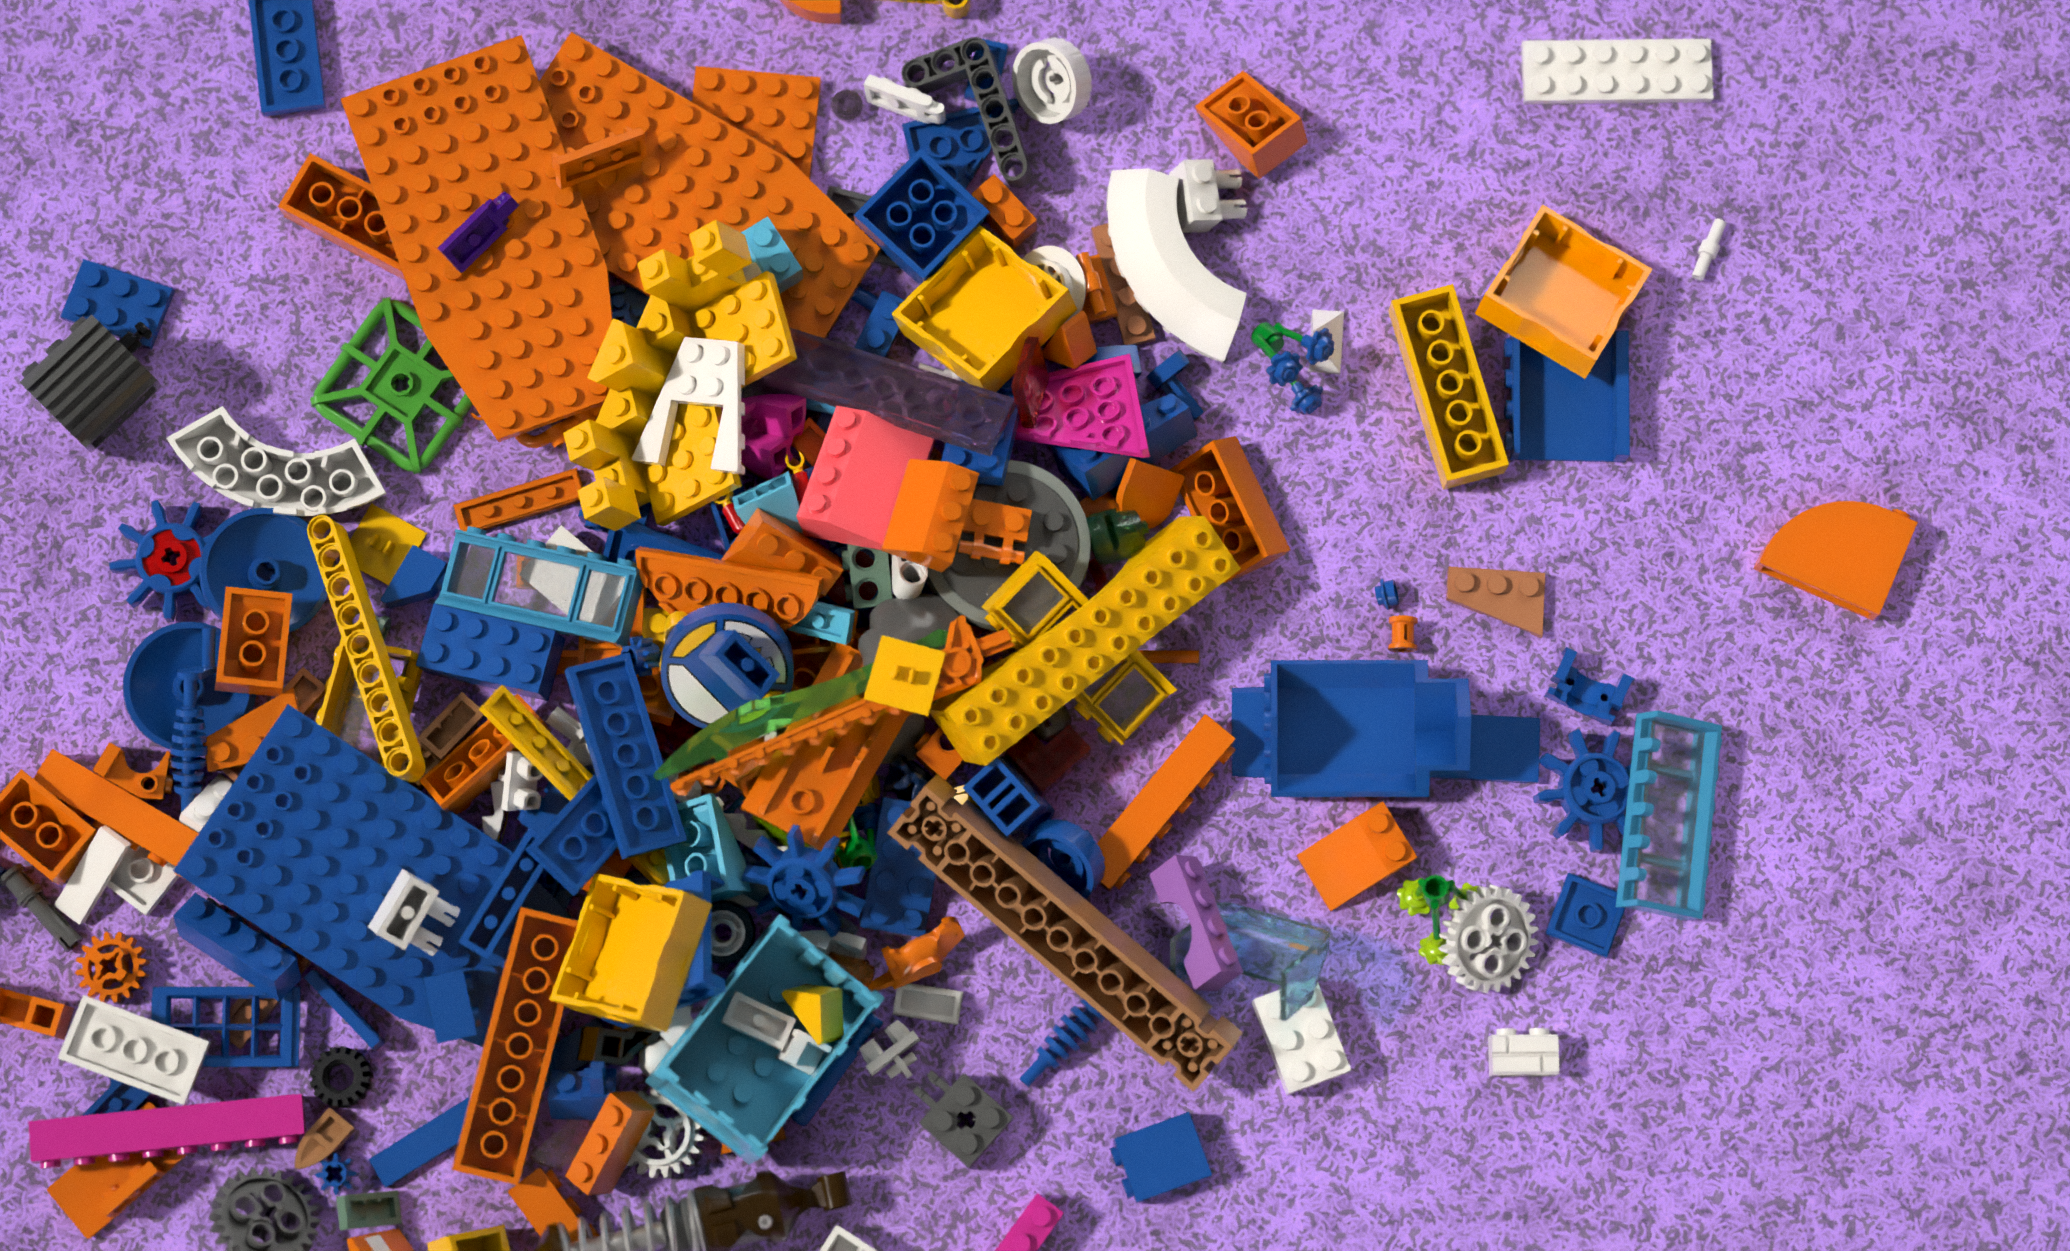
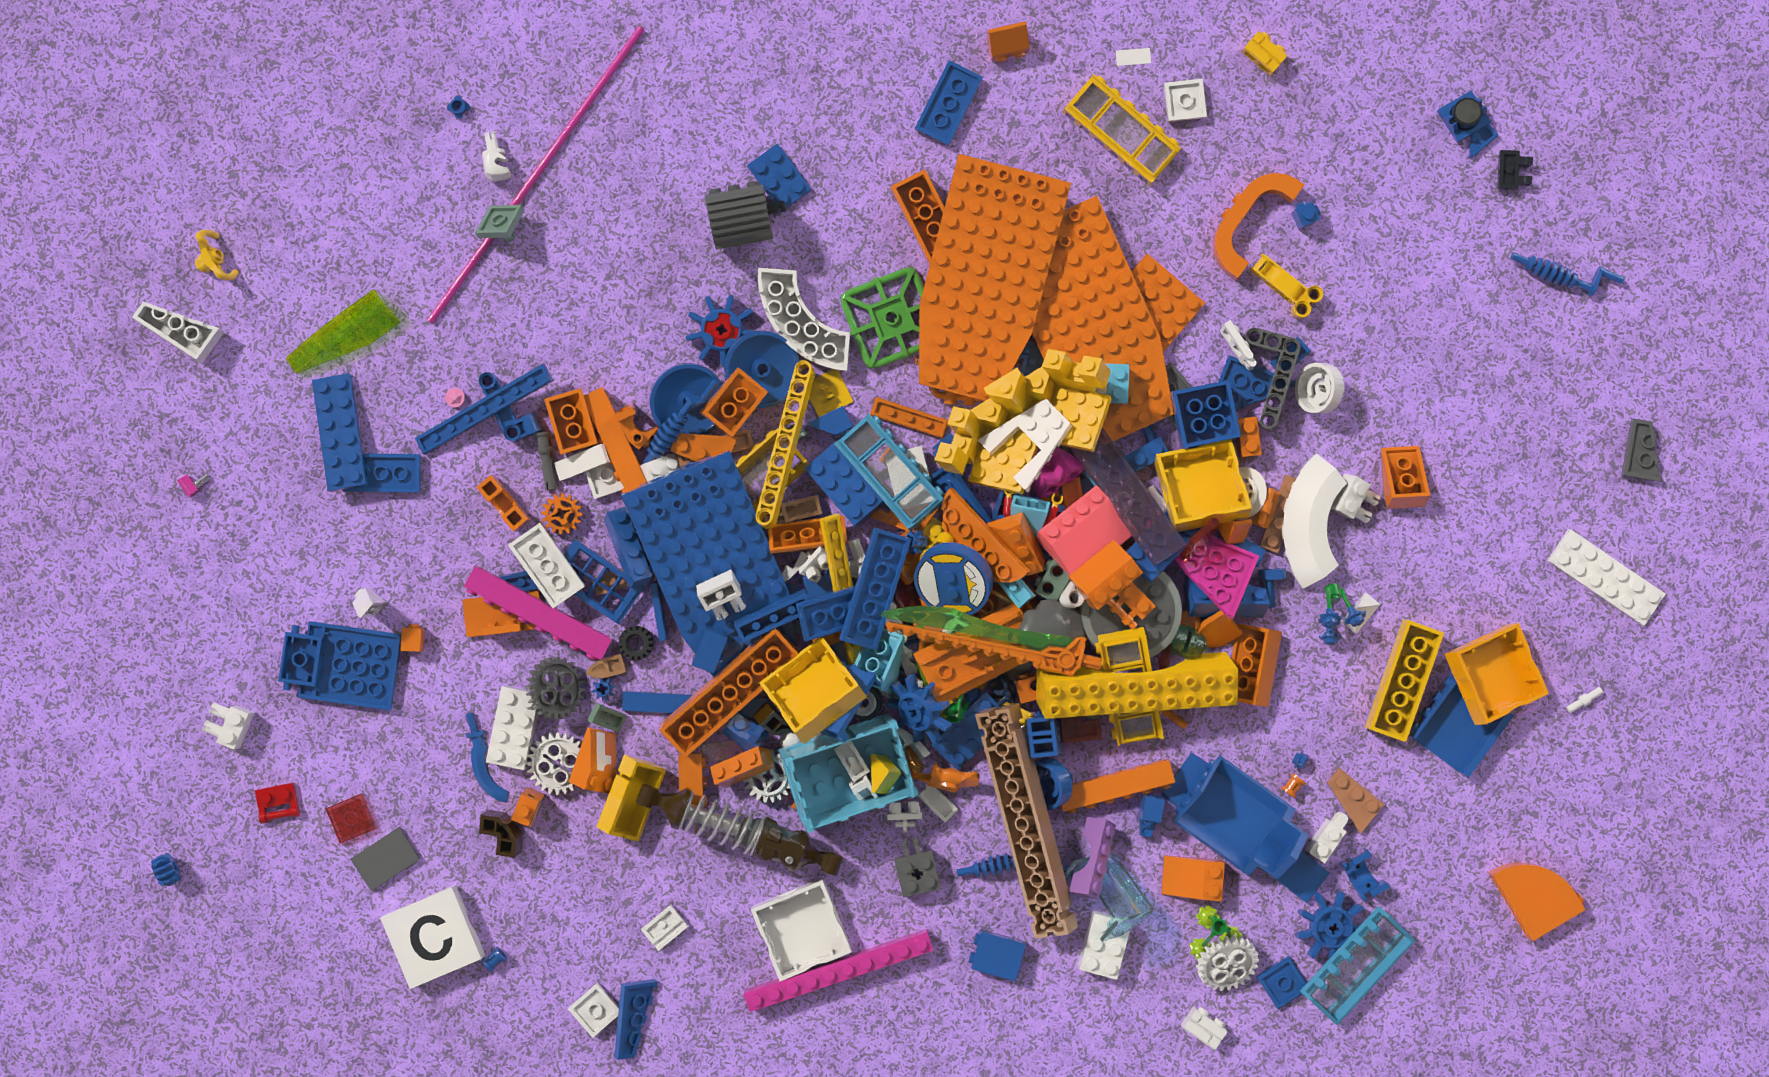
camera: 40 degrees right, 10 degrees up
(478, 232) = (981, 273): dark purple hinge -> none
(599, 157) = (1066, 274): orange plate -> none
(739, 665) = (960, 587): blue brick -> none
(847, 105) = (1208, 326): clear smoke plate -> none
(904, 675) = (1036, 649): yellow piece -> none
(1232, 807) = (1149, 813): none -> blue hinge
(1500, 671) = (1328, 837): none -> white brick

